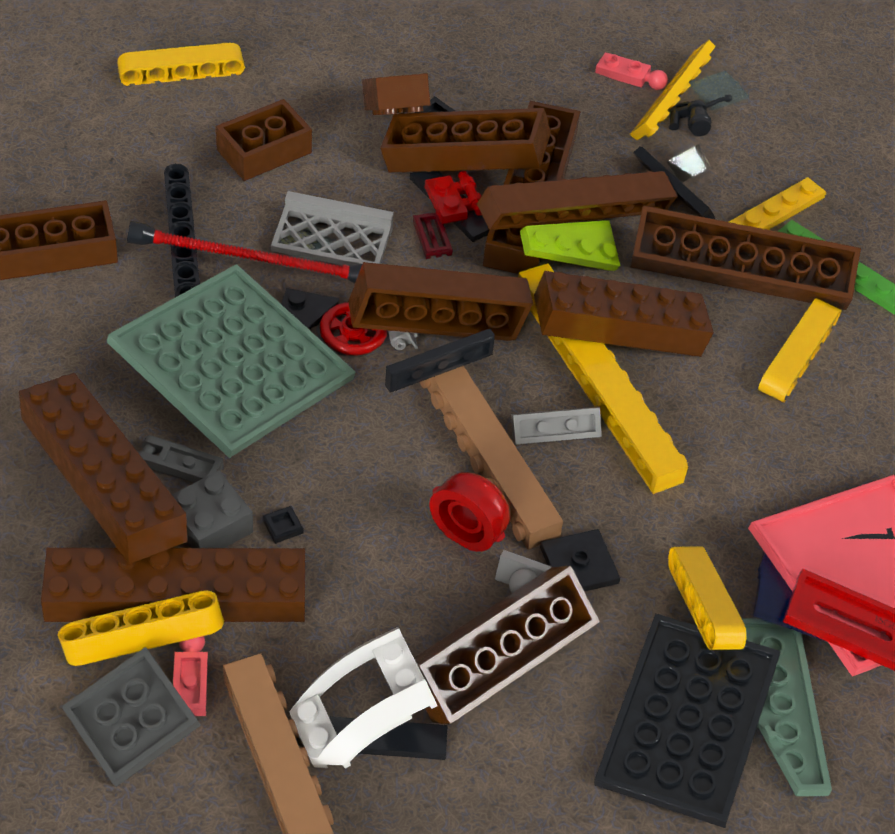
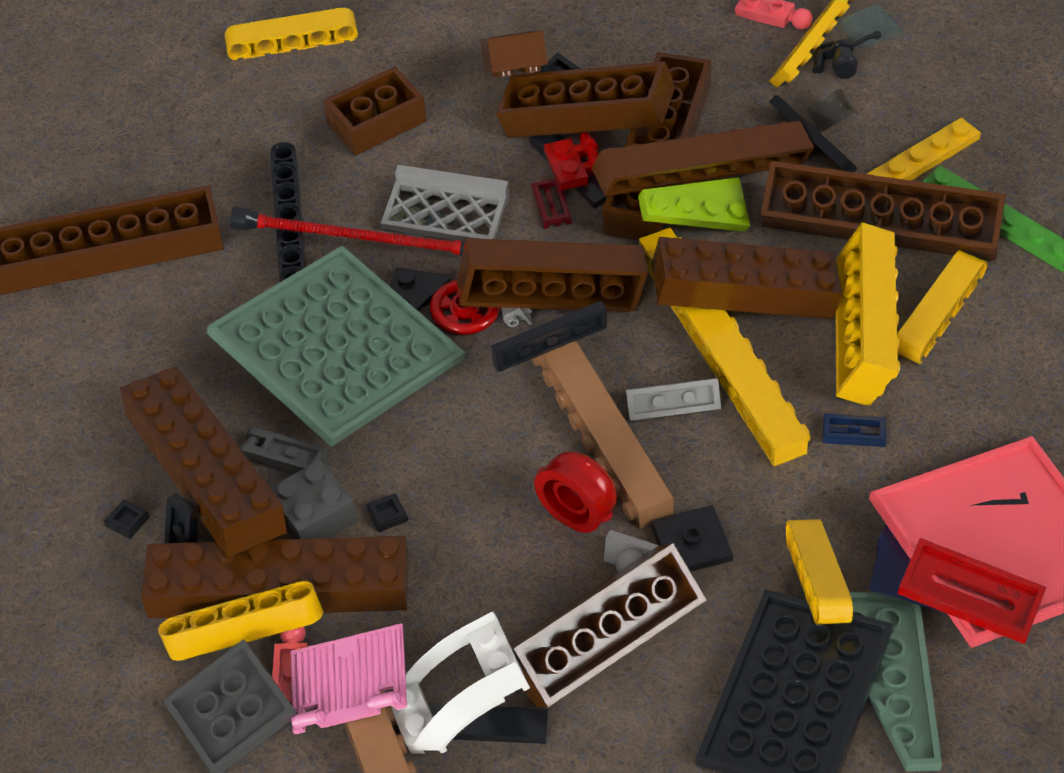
camera: 10 degrees right, 0 degrees up
(23, 521) = (126, 519): none -> black tile
(80, 525) = (181, 520): none -> black plate
(251, 689) = (347, 678): none -> bright pink window
(727, 465) = (854, 433): none -> dark blue tile
(737, 355) = (867, 315): none -> yellow brick

